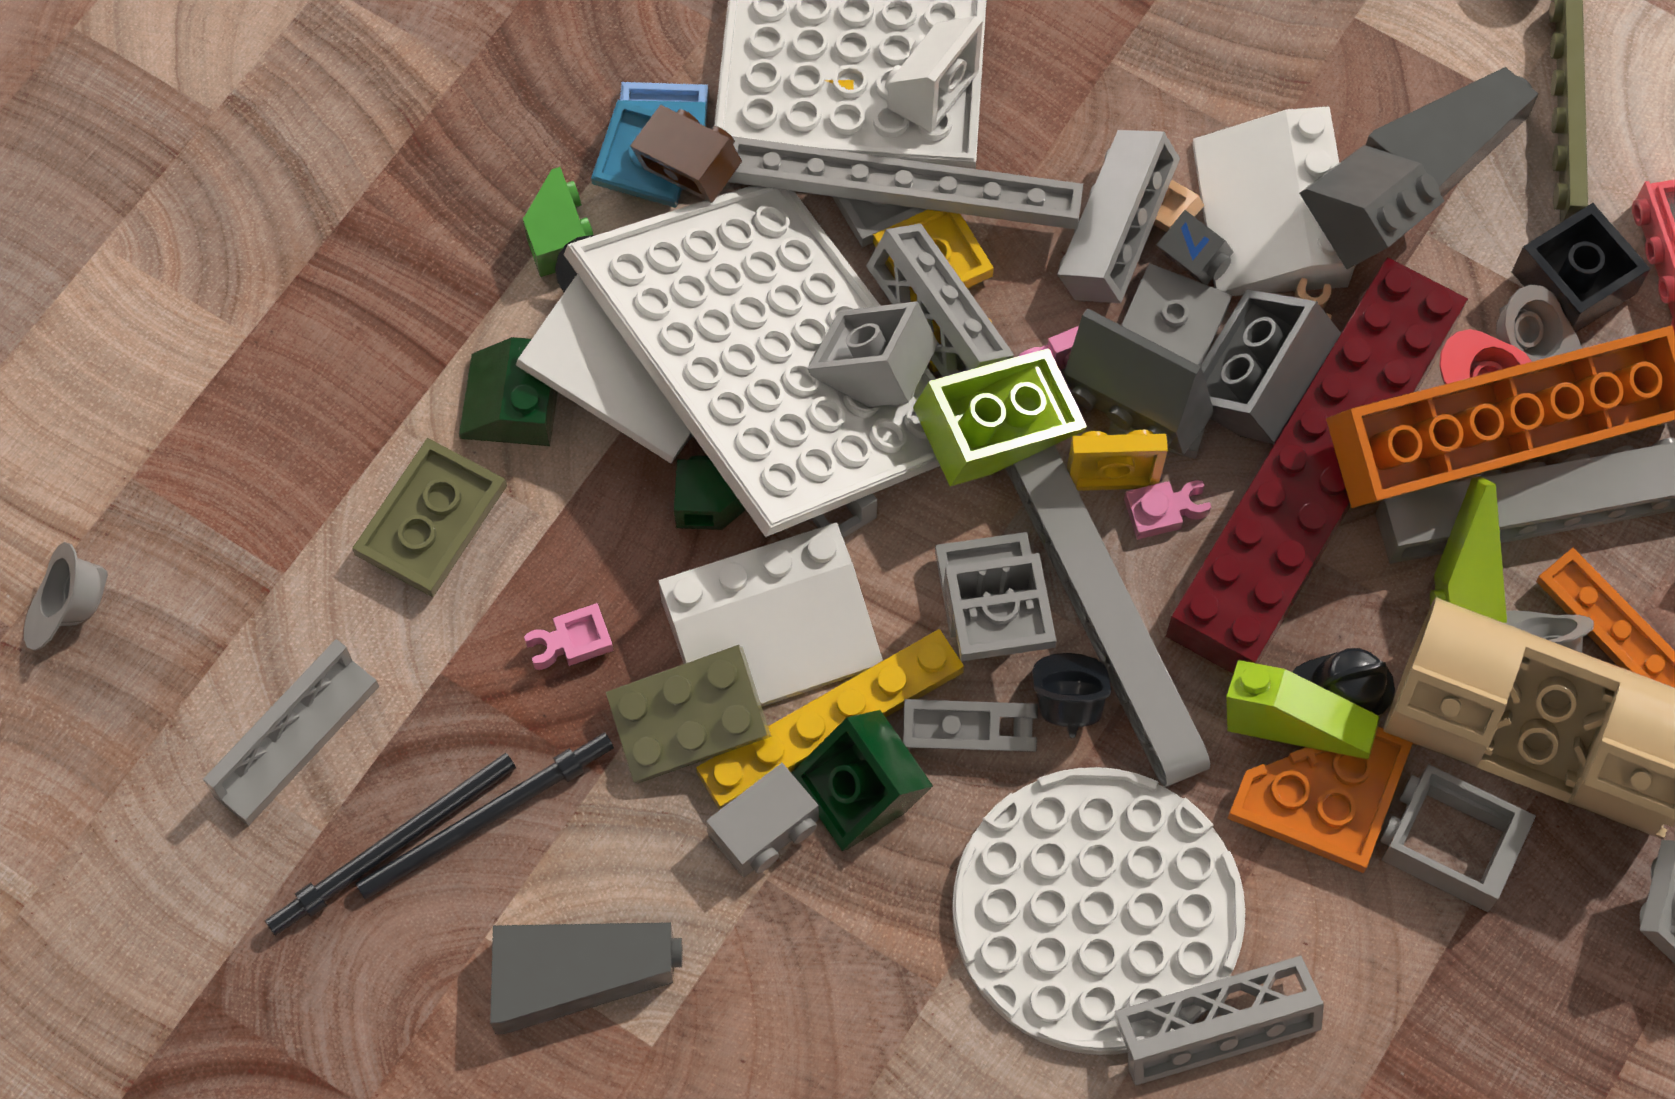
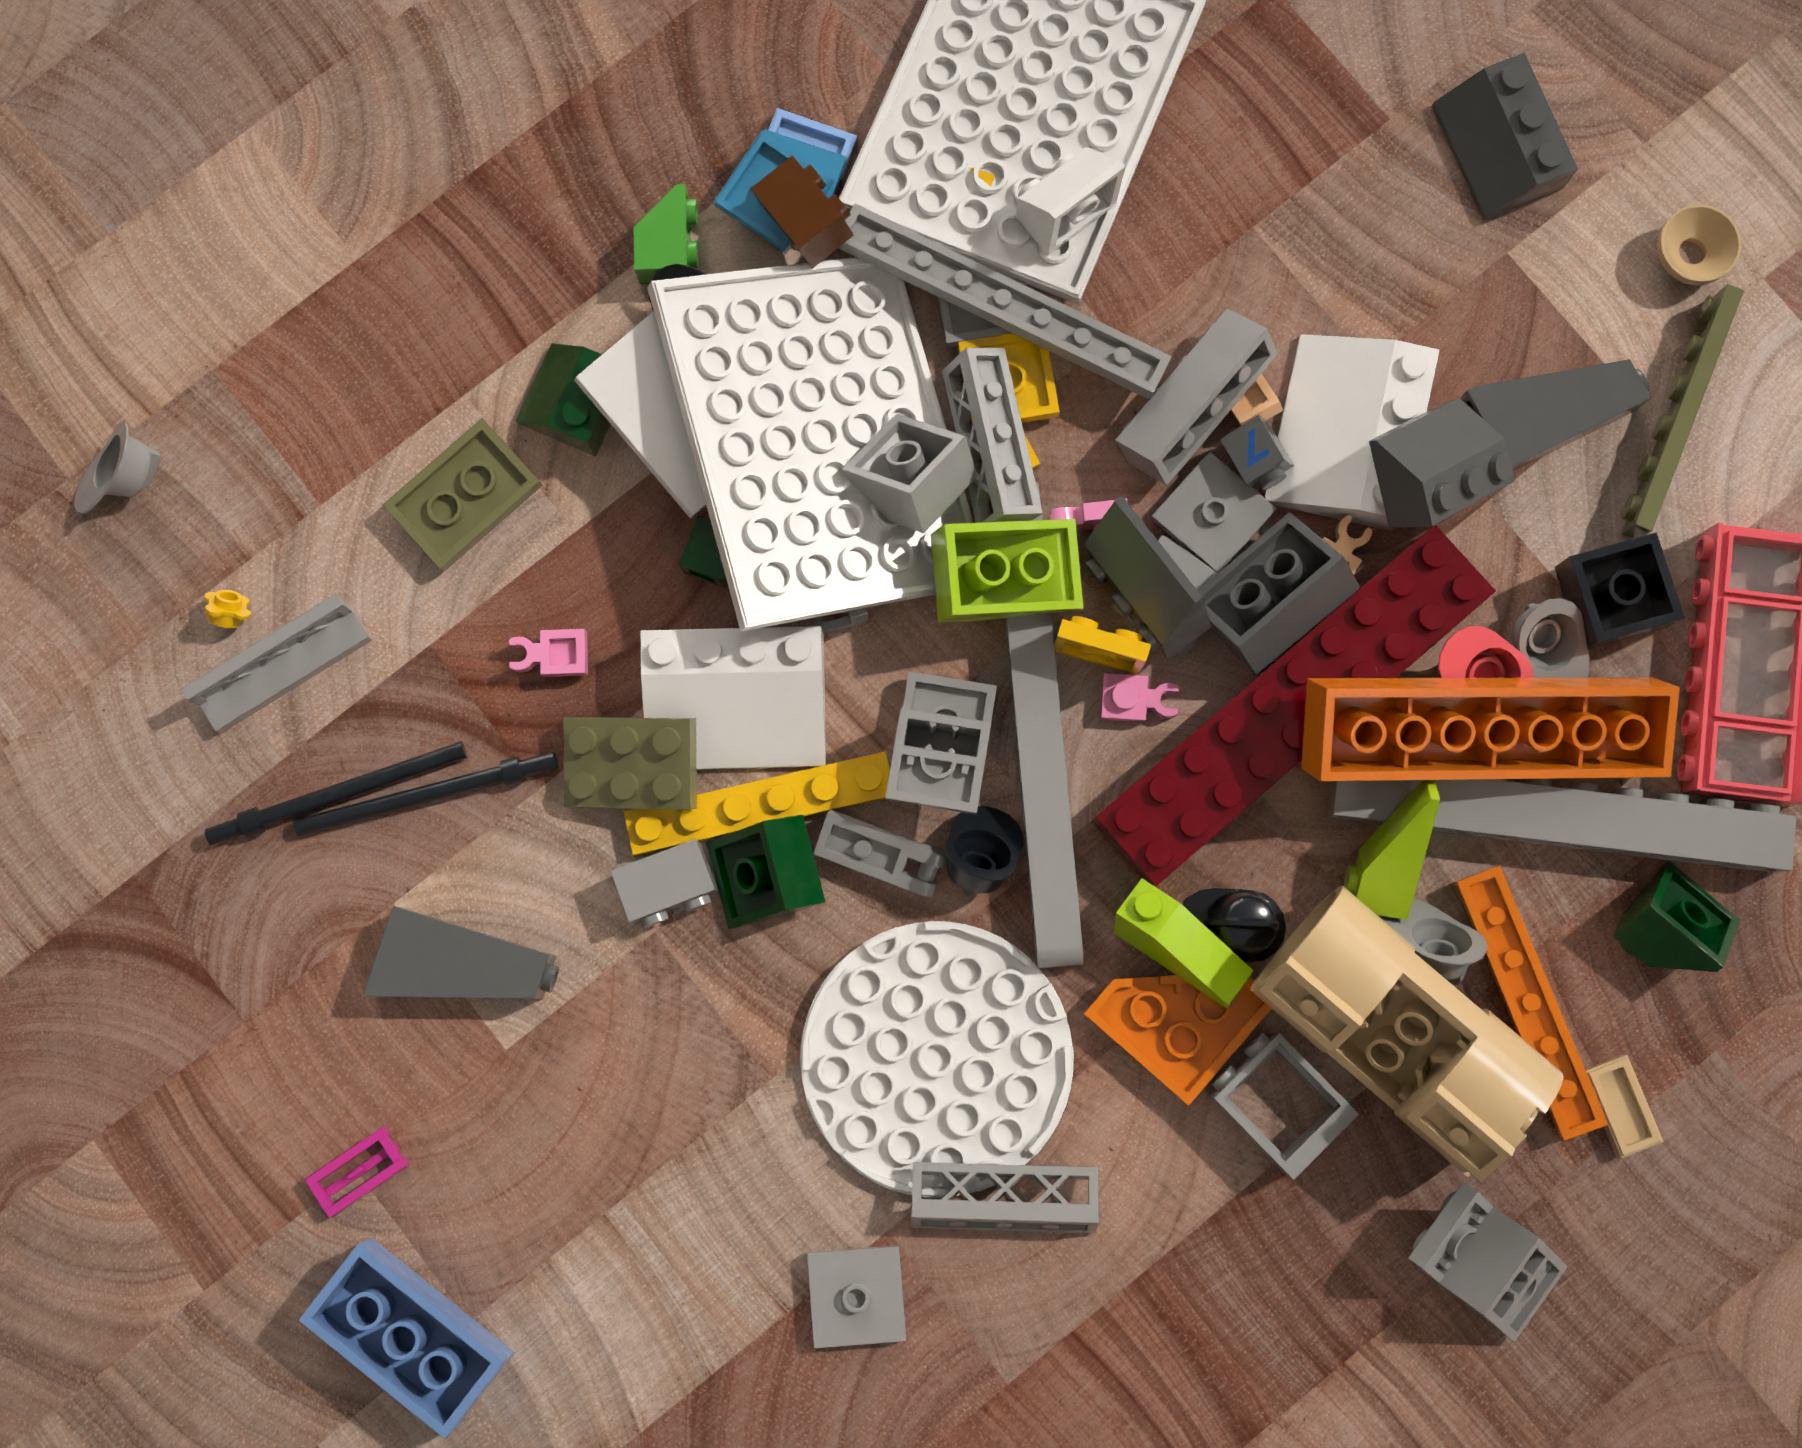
camera: 25 degrees right, 15 degrees up
(220, 696) = (226, 608): none -> yellow plate

